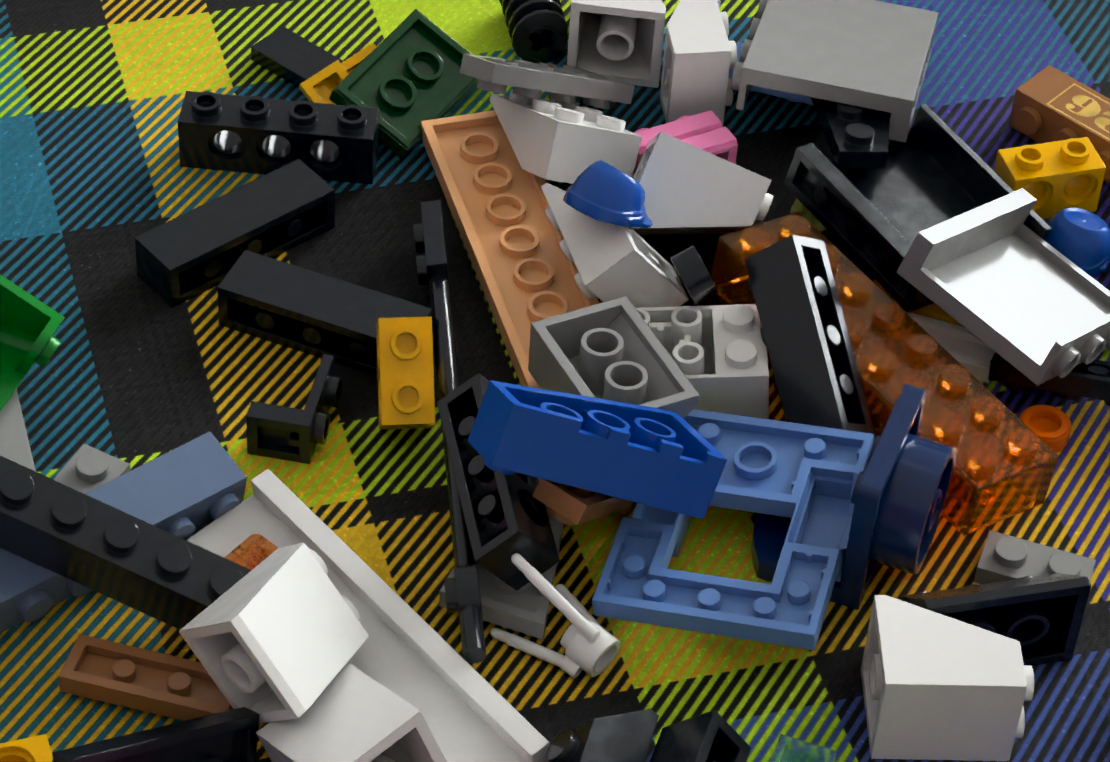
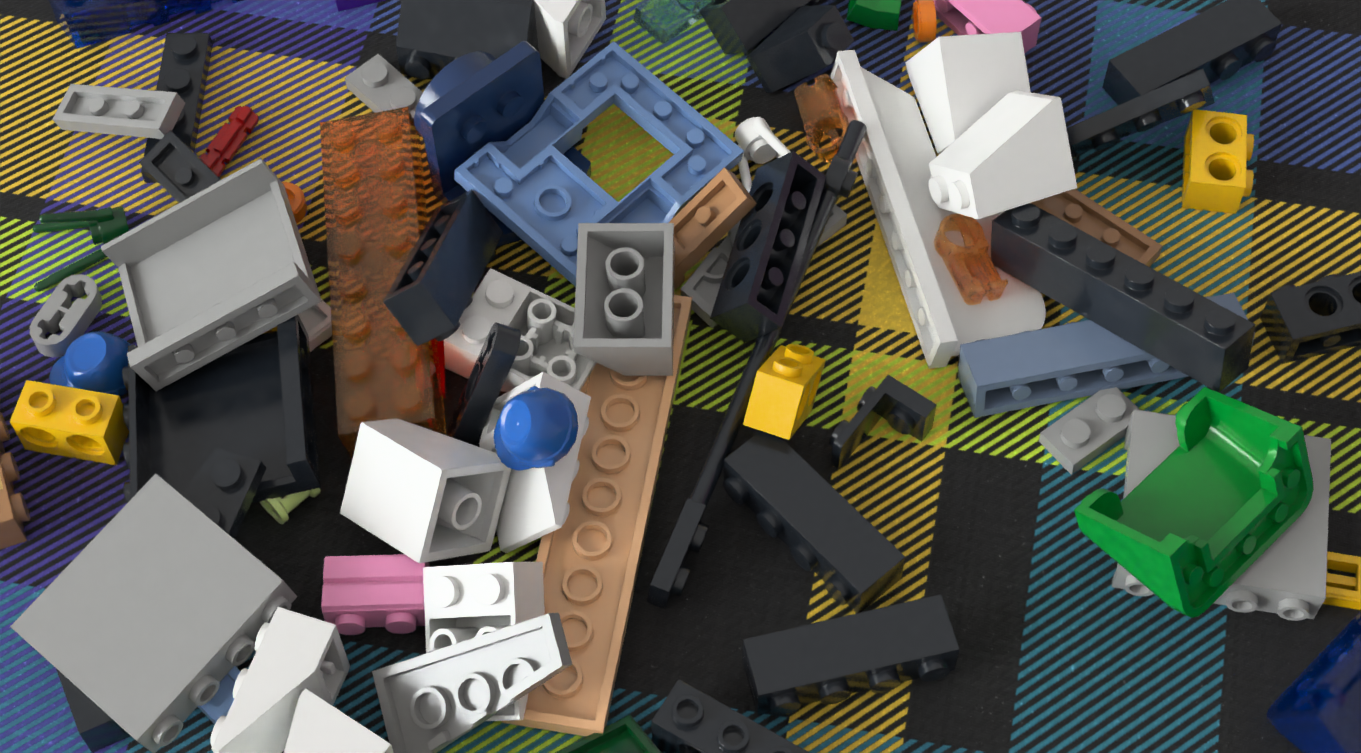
camera: 150 degrees left, 15 degrees up
(529, 693) = (821, 115): none -> clear orange piece
(597, 446) = (696, 185): blue wedge -> none

